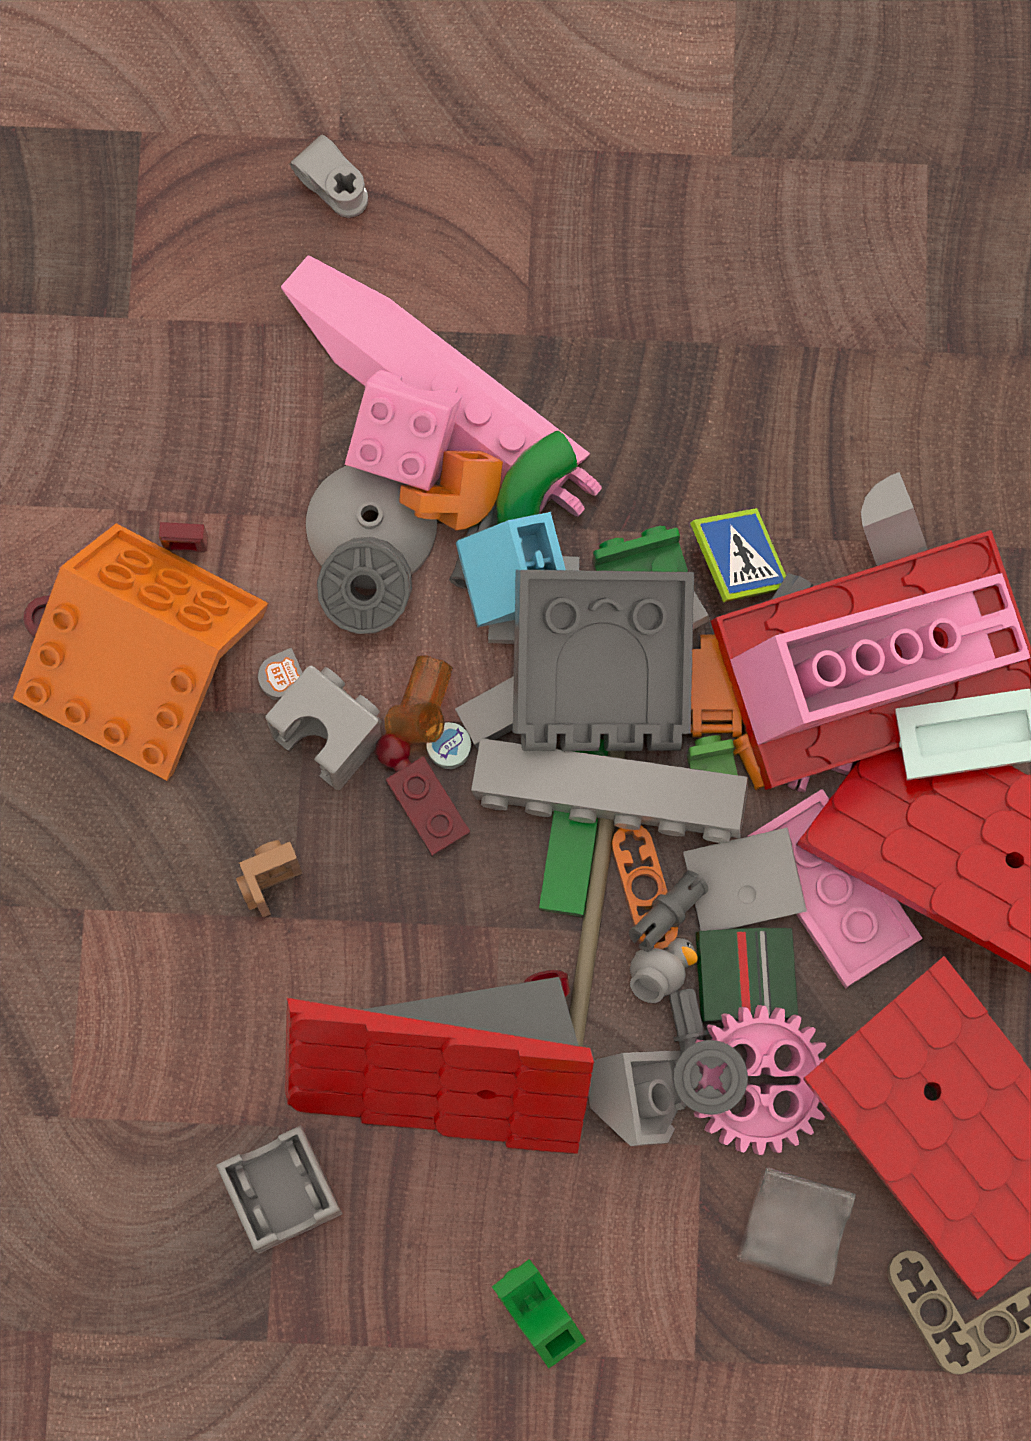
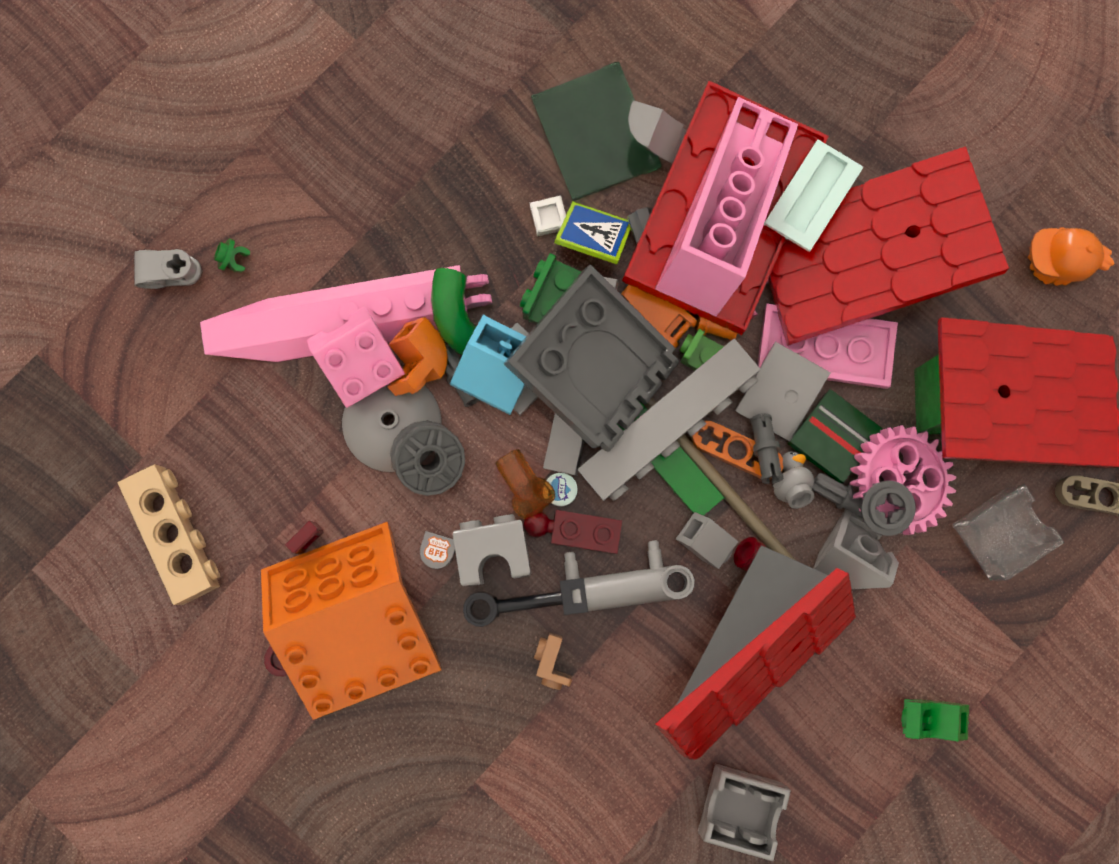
camera: 50 degrees left, 5 degrees up
(92, 344) = (139, 494): none -> tan brick
(369, 862) = (594, 592): none -> light grey piece
(395, 222) = (225, 255): none -> green plate
(522, 931) = (707, 540): none -> light grey brick
(719, 495) = (548, 215): none -> white tile
(839, 457) = (592, 131): none -> clear green piece

